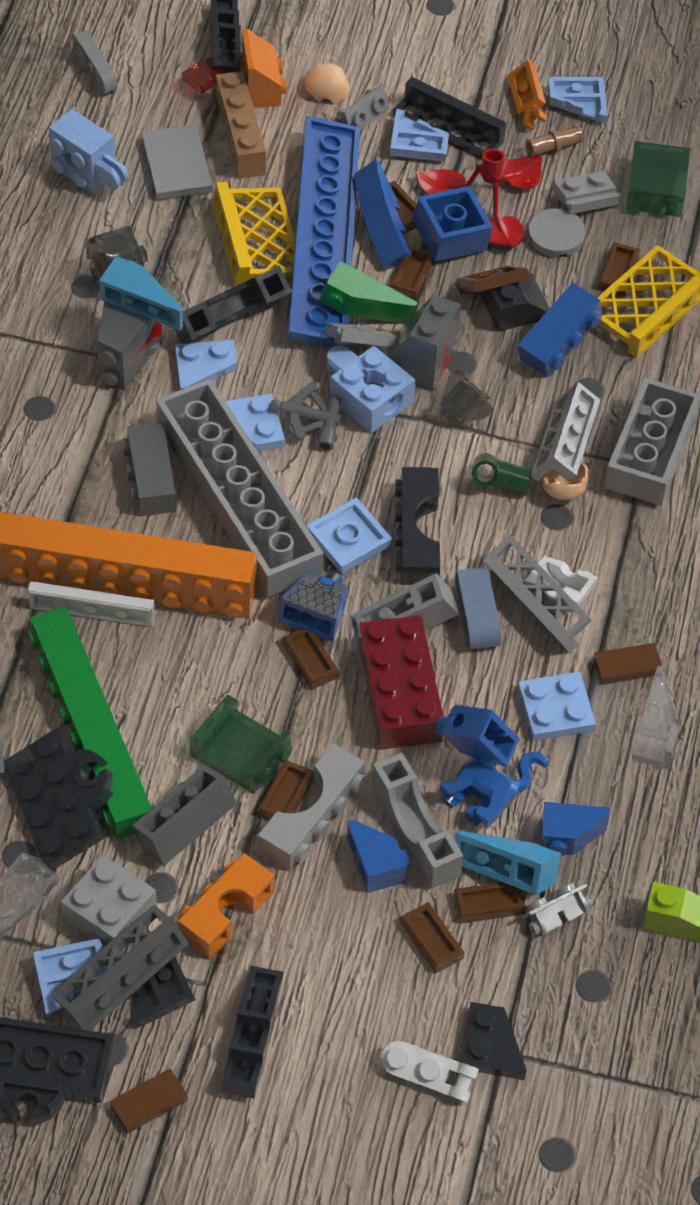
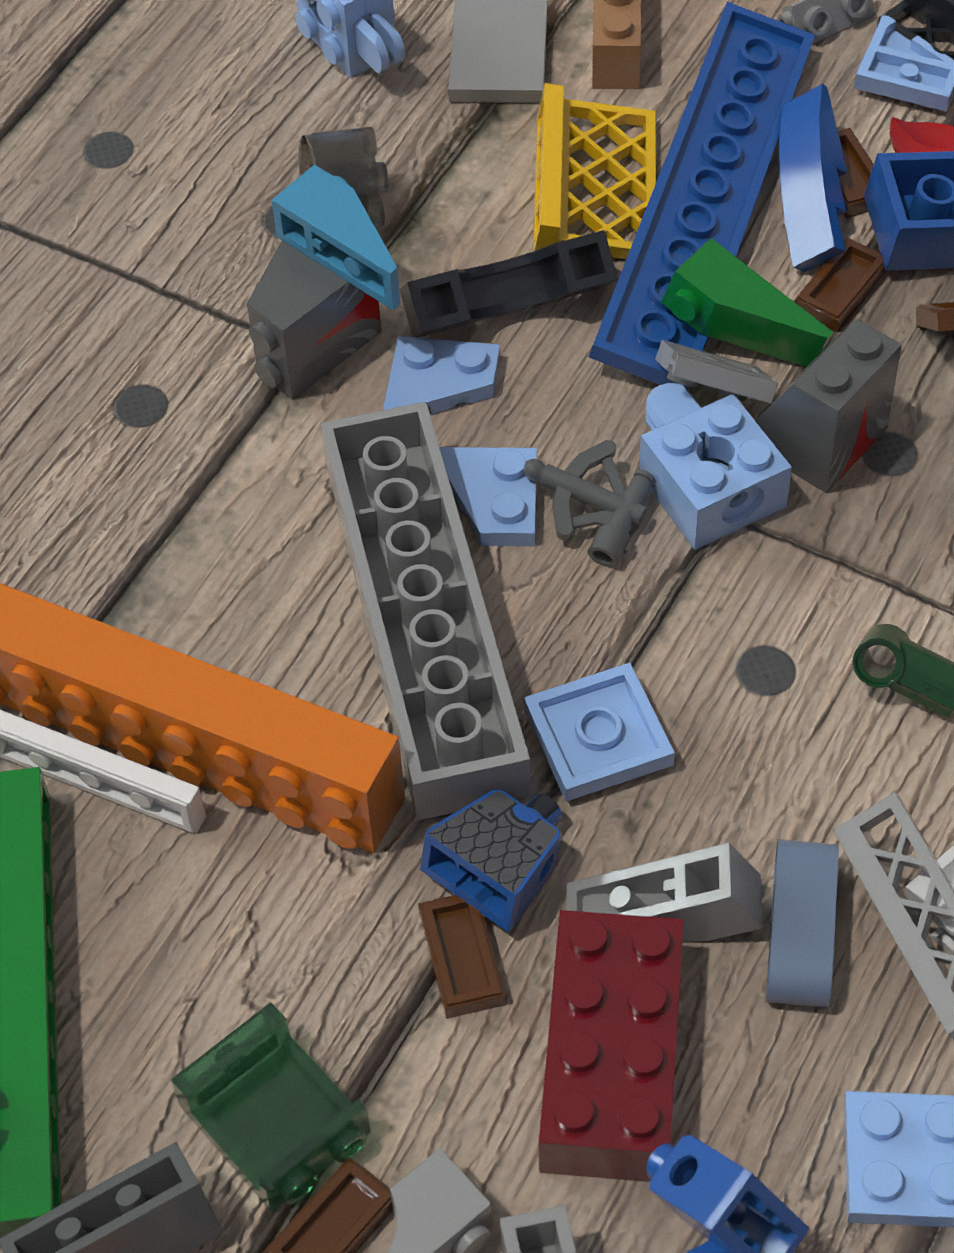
camera: 20 degrees right, 0 degrees up
(149, 469) = (281, 544): dark grey brick -> none
(418, 497) = (745, 683): black arch -> none
(464, 400) = (875, 519): clear smoke brick -> none

